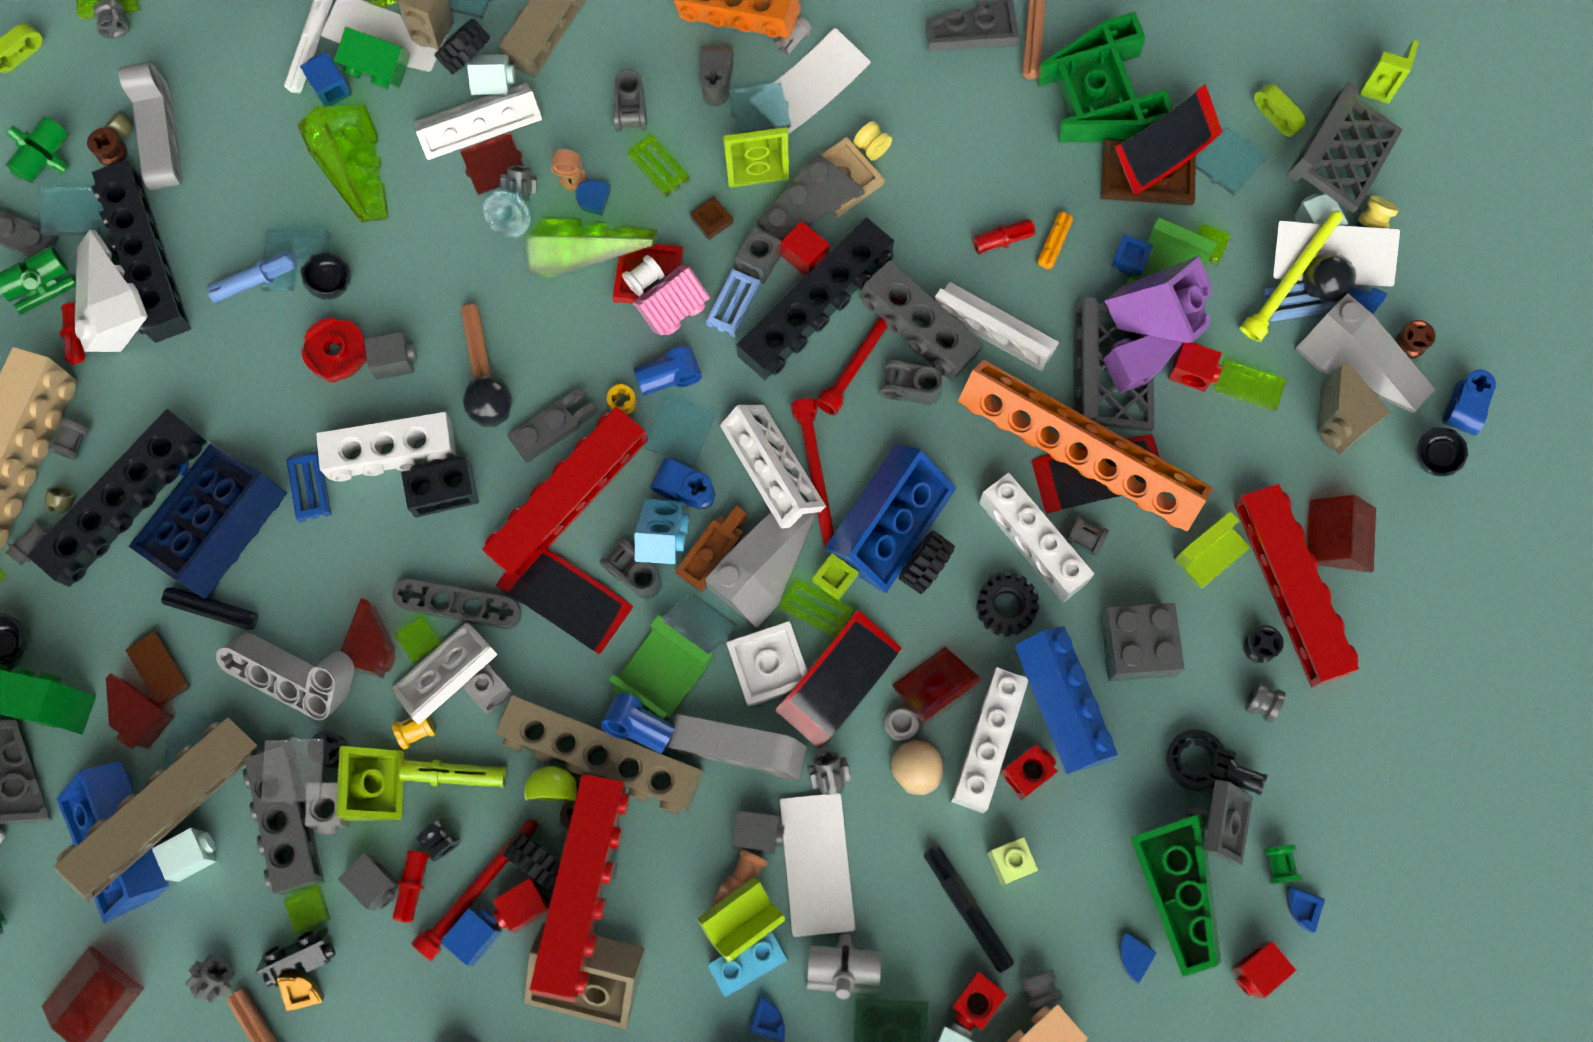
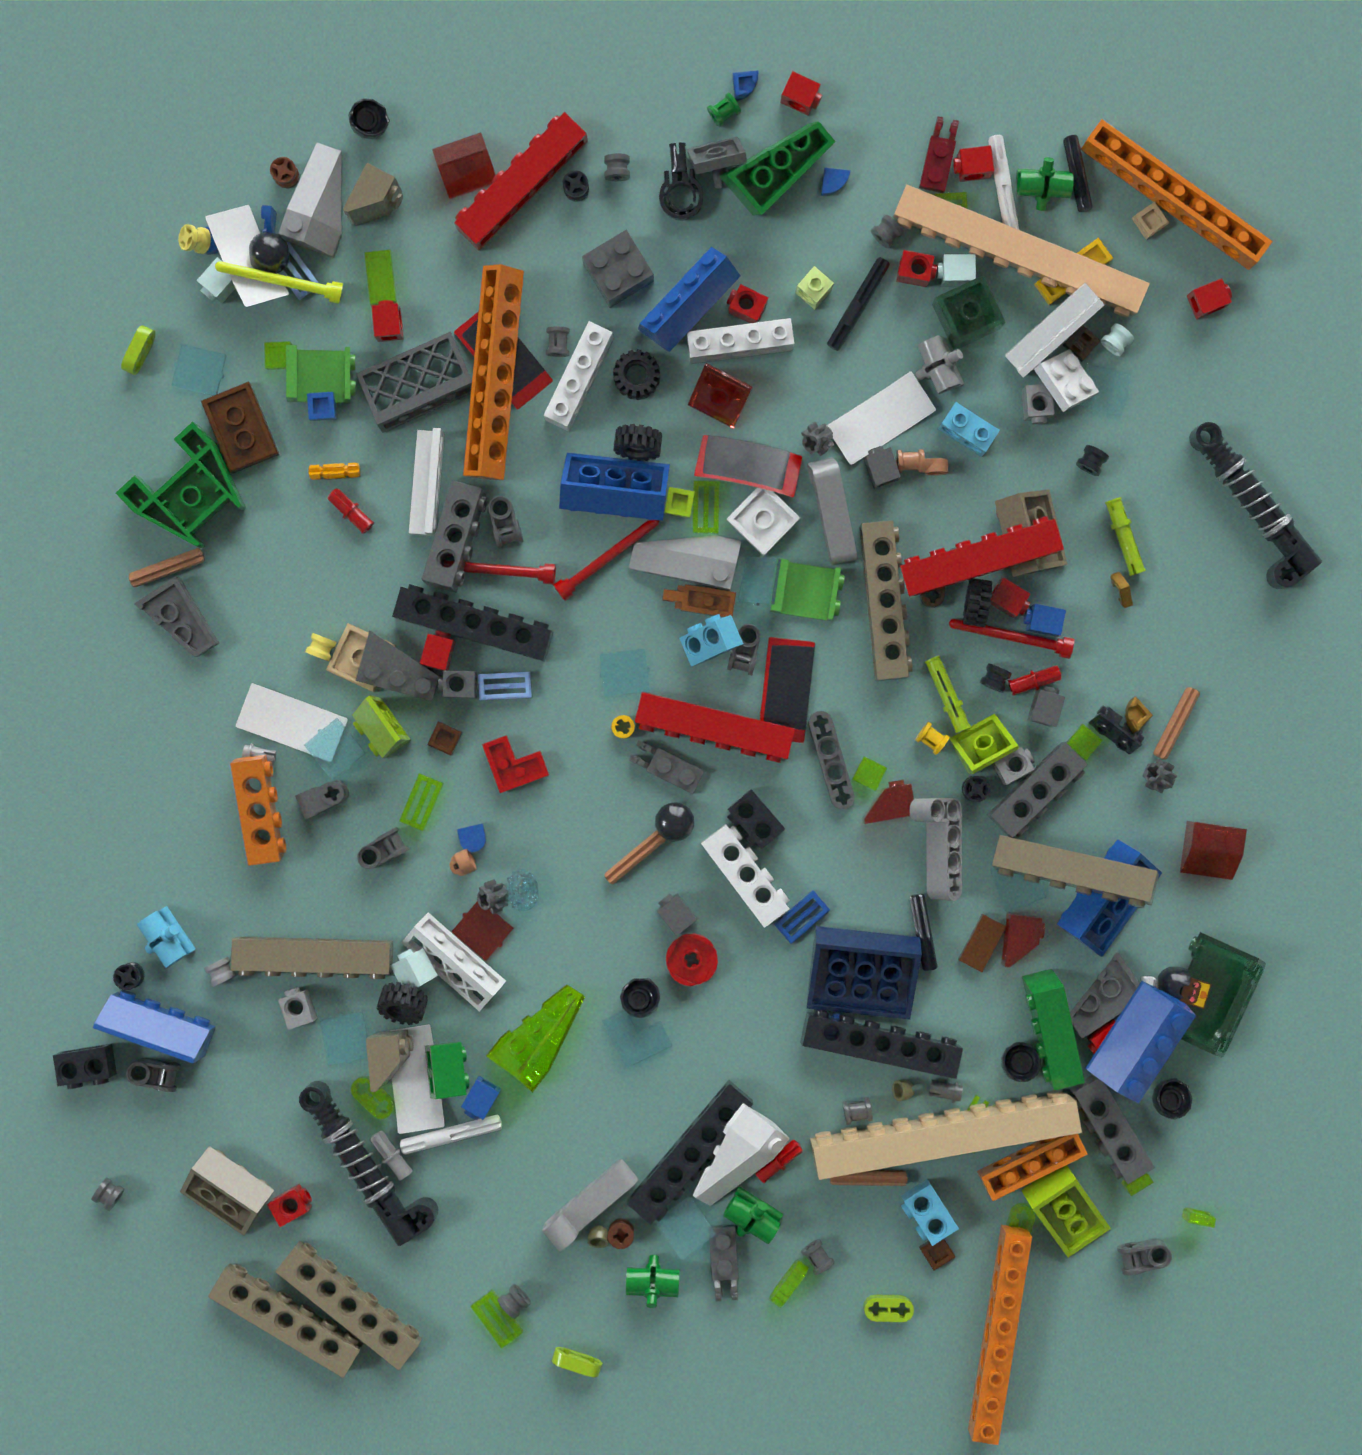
camera: 115 degrees left, 15 degrees up
(185, 854) = (1092, 841): light aqua brick -> none
(261, 272) = (664, 1048): medium blue axle -> none
(292, 770) = (1004, 798): clear piece -> none
(443, 672) = (885, 737): white tile -> none
(488, 689) = (880, 702): light grey brick -> none
(550, 784) = (923, 620): lime hair -> none
(565, 245) = (522, 825): clear neon green wedge -> none
(629, 720) = (854, 587): blue piece -> none
(643, 275) = (523, 757): white bush -> none
(672, 301) = (529, 728): bright pink brick -> none
(675, 369) = (580, 699): blue piece -> none
(678, 482) = (665, 652): blue piece -> none
(740, 920) = (946, 444): lime panel -> none
(767, 464) = (621, 592): white fence -> none
(768, 1021) = (996, 399): blue tile -> none
(901, 724) = (758, 408): light grey plate -> none
(917, 767) = (781, 382): tan hair -> none
(1138, 361) = (401, 357): medium lavender slope -> none
(1165, 303) = (357, 360): medium lavender slope -> none
(1169, 141) = (212, 417): black sticker -> none
(1213, 551) = (523, 249): lime panel -> none
(1317, 155) = (144, 304): dark grey fence -> none
(1389, 74) = (71, 274): lime panel -> none
(1470, 402) = (321, 113): blue piece -> none

